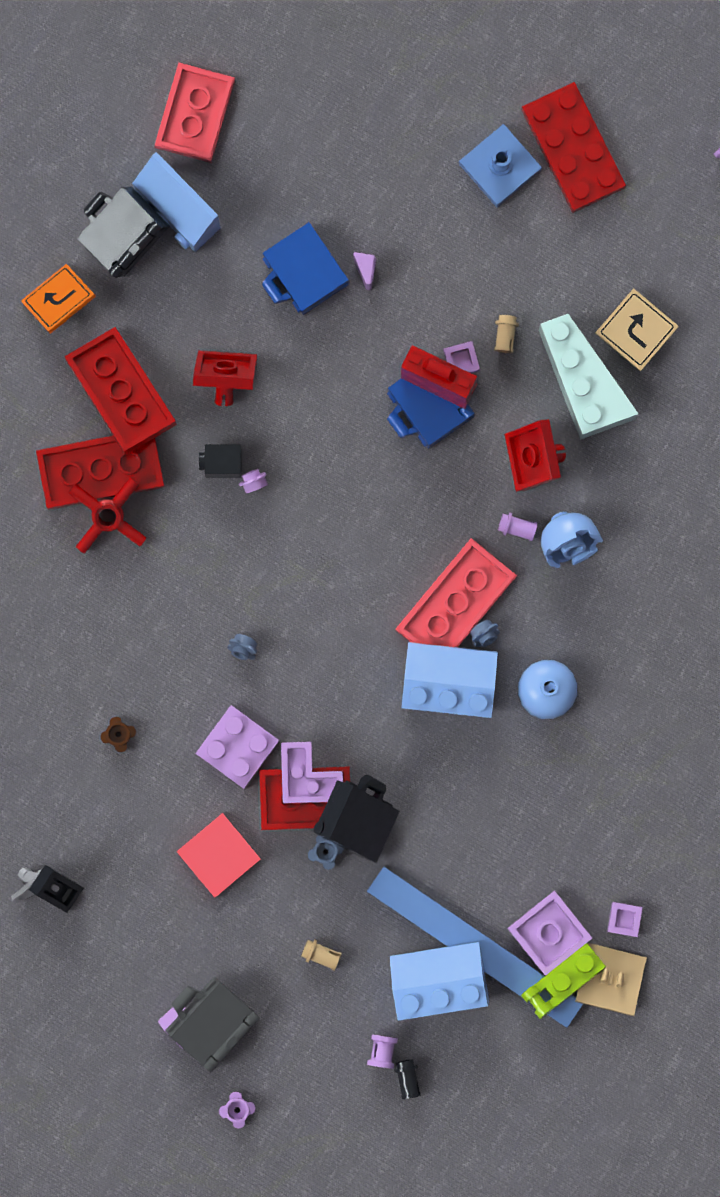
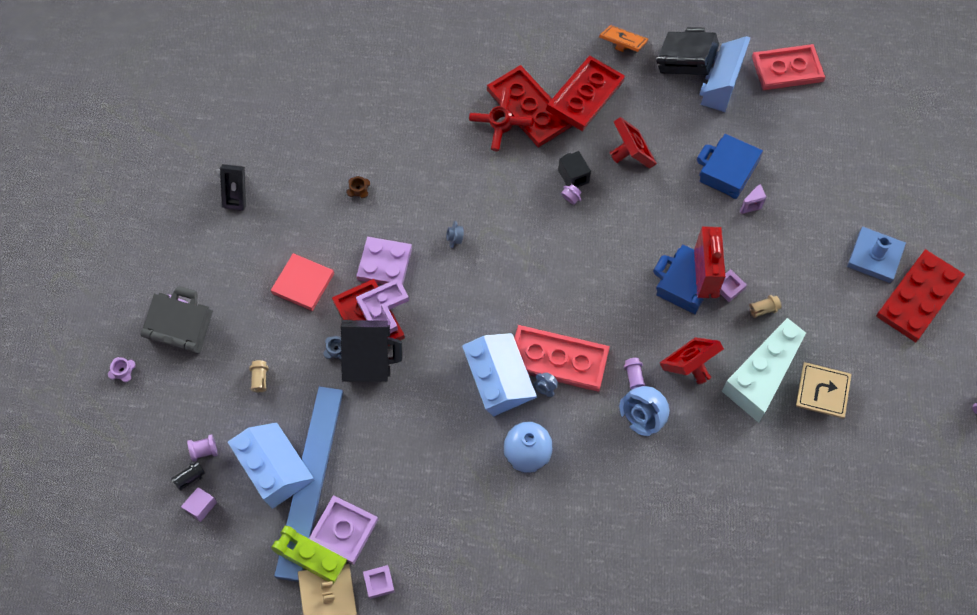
camera: 65 degrees right, 20 degrees down
(445, 1079) = (199, 504): none -> lavender slope

